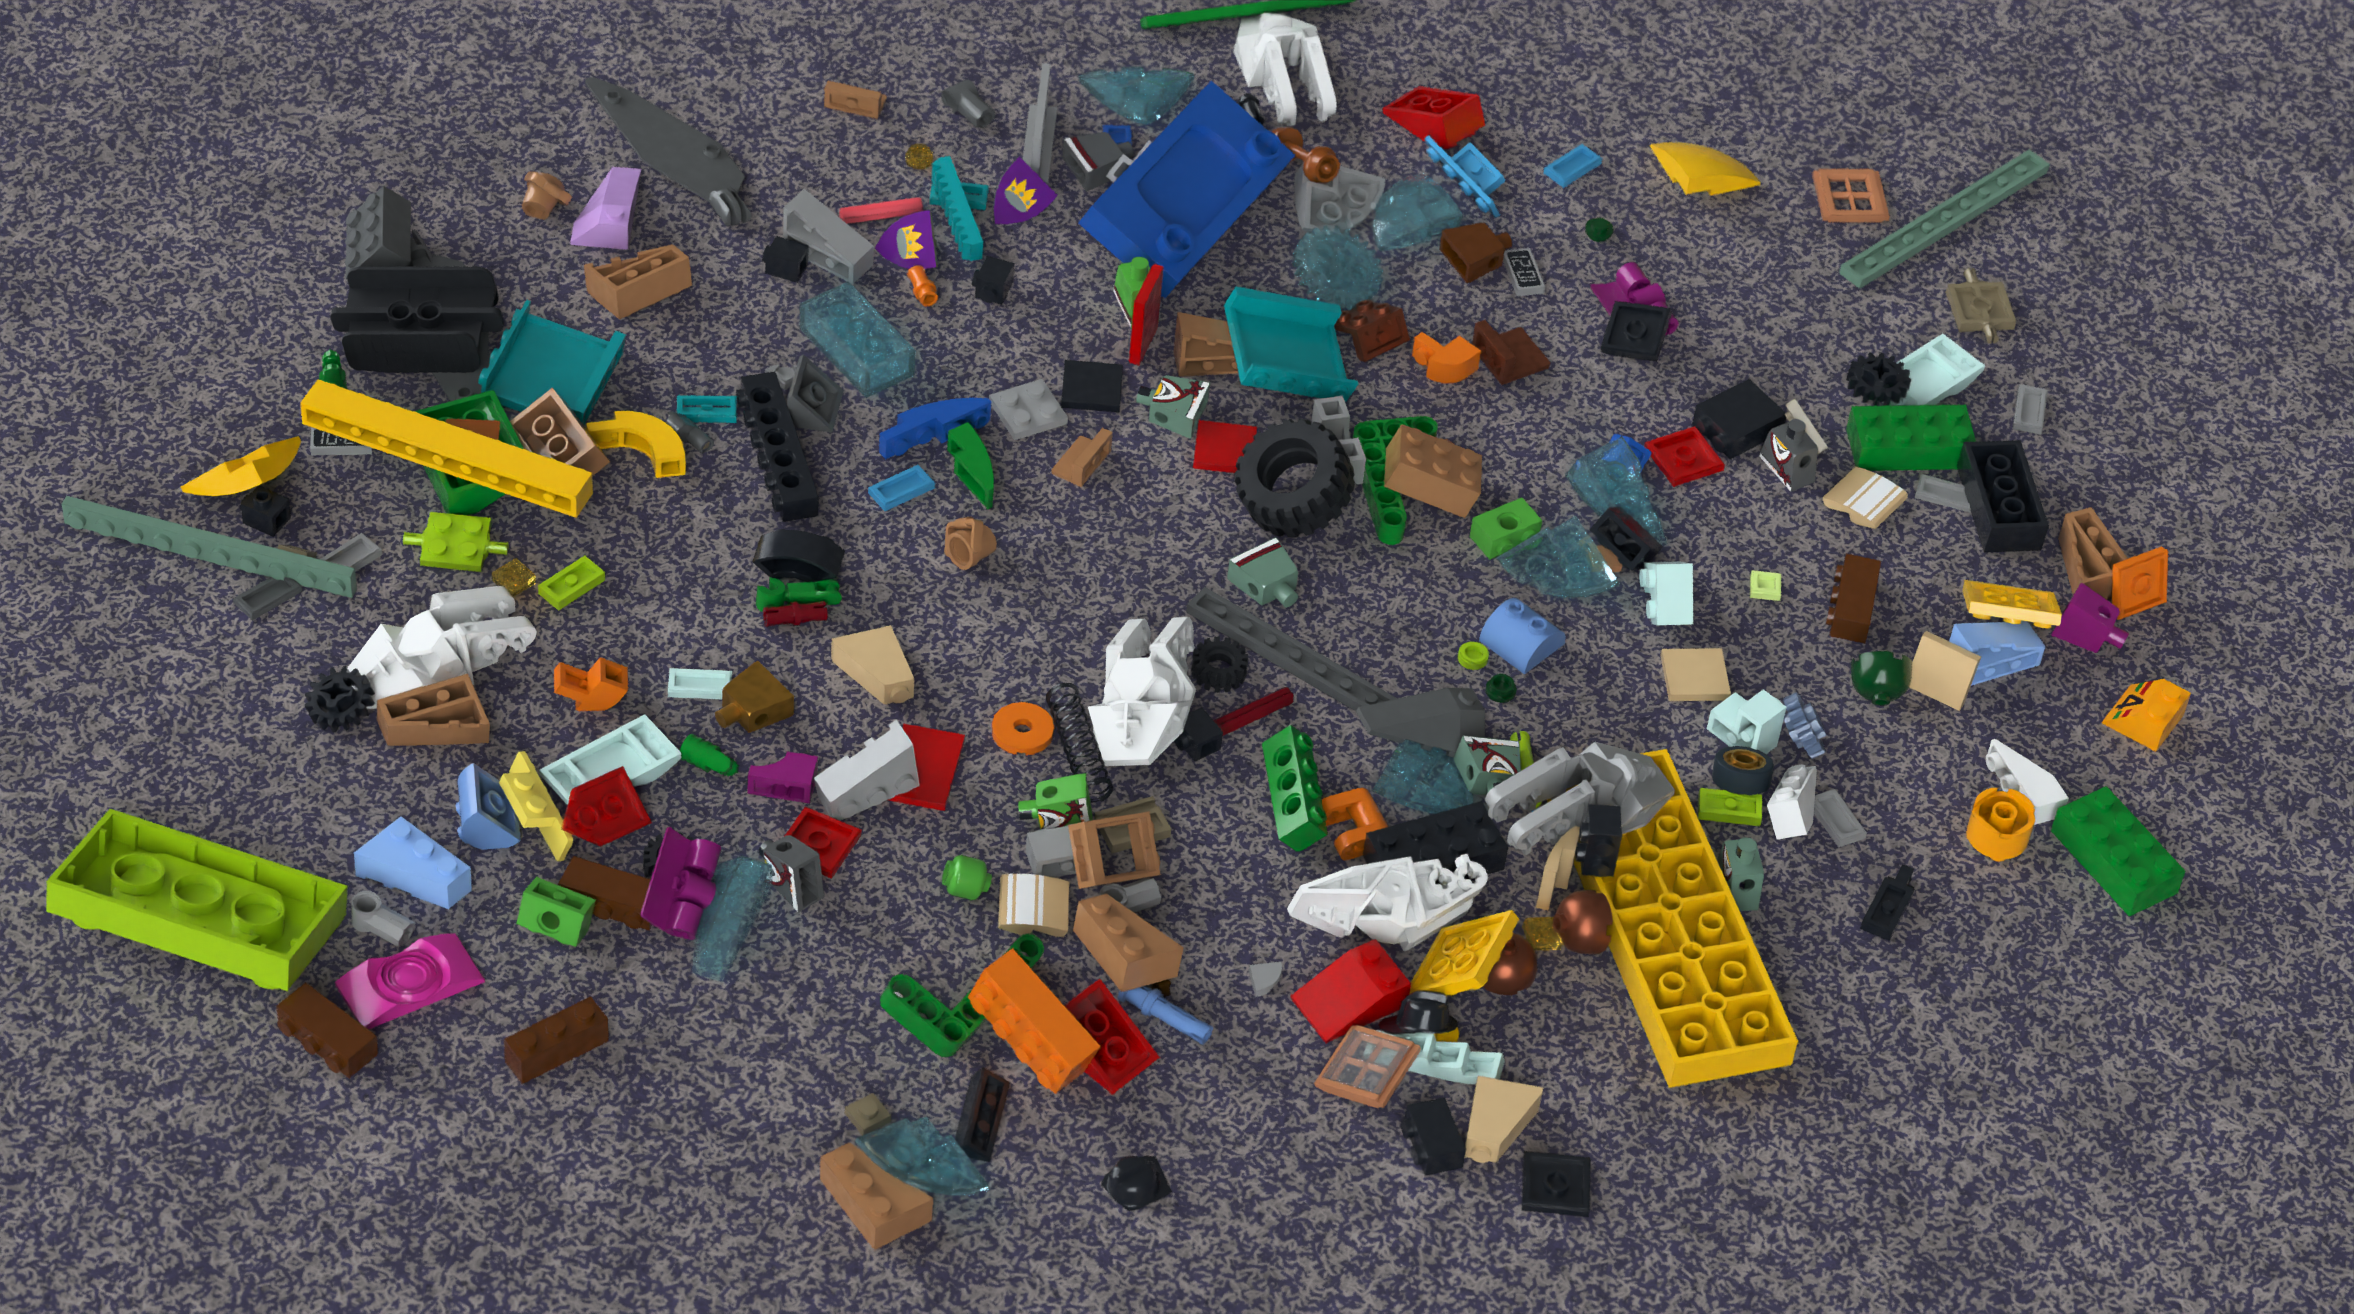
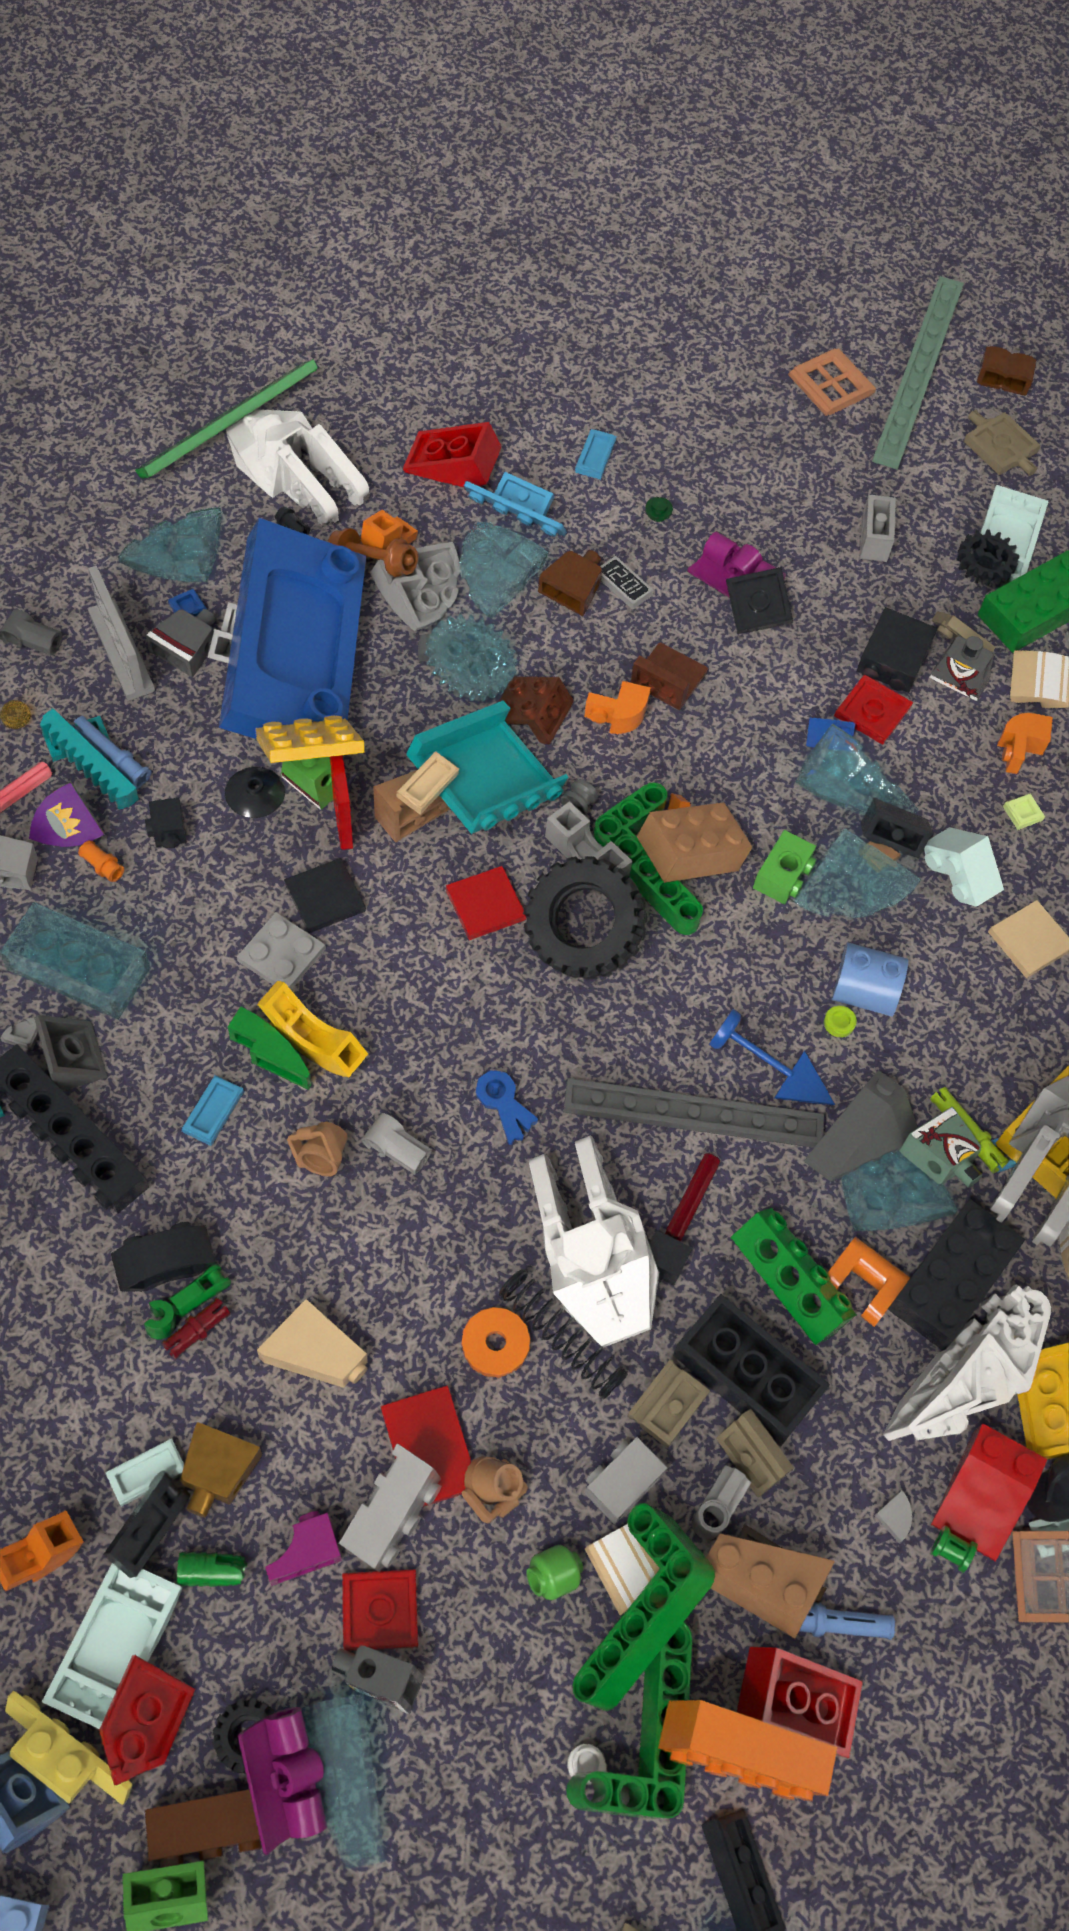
camera: 30 degrees left, 15 degrees up
(679, 704) = (147, 1525): none -> black plate
(932, 420) = (209, 1011): blue slope -> none
(954, 803) = (492, 1482): none -> medium nougat piece
(985, 221) = (120, 759): none -> medium blue pin
(1010, 468) = (326, 1046): none -> yellow arch
(1012, 920) = (654, 1615): none -> green beam
(1020, 194) = (138, 714): dark purple shield -> none
(1031, 566) = (392, 1141): none -> light grey piece
(1059, 802) = (610, 1426): bright green torso -> none
(1083, 293) = (254, 802): none -> black dish
(1084, 457) = (364, 984): medium nougat panel -> none
(1088, 854) = (678, 1500): medium nougat window -> none
(1136, 1182) = (938, 1861): black piece -> none
(1141, 575) = (497, 1092): none -> blue piece
(1142, 249) = (309, 739): none -> yellow plate
(1176, 403) = (416, 879): sand green torso -> none
(1177, 879) = (754, 1452): none -> dark tan plate
(1213, 828) = (750, 1368): none -> black brick
(1218, 677) = (637, 1143): black tyre -> none
(1225, 328) = (427, 783): none -> tan tile
(1265, 573) = (613, 1031): sand green torso -> none
(1294, 1013) = (954, 1549): none -> green bush
(1326, 135) = (383, 528): none -> orange brick
(1361, 406) = (580, 795): none -> dark grey wheel
(1403, 680) = (801, 1082): none -> blue piece
(1501, 688) = (887, 1046): dark green plate -> none
(1703, 168) = (700, 408): yellow brick -> none
(1794, 320) = (877, 528): none -> light grey brick
(1808, 526) = (1024, 734): none -> orange brick
(2034, 250) = (1006, 370): none -> reddish brown brick

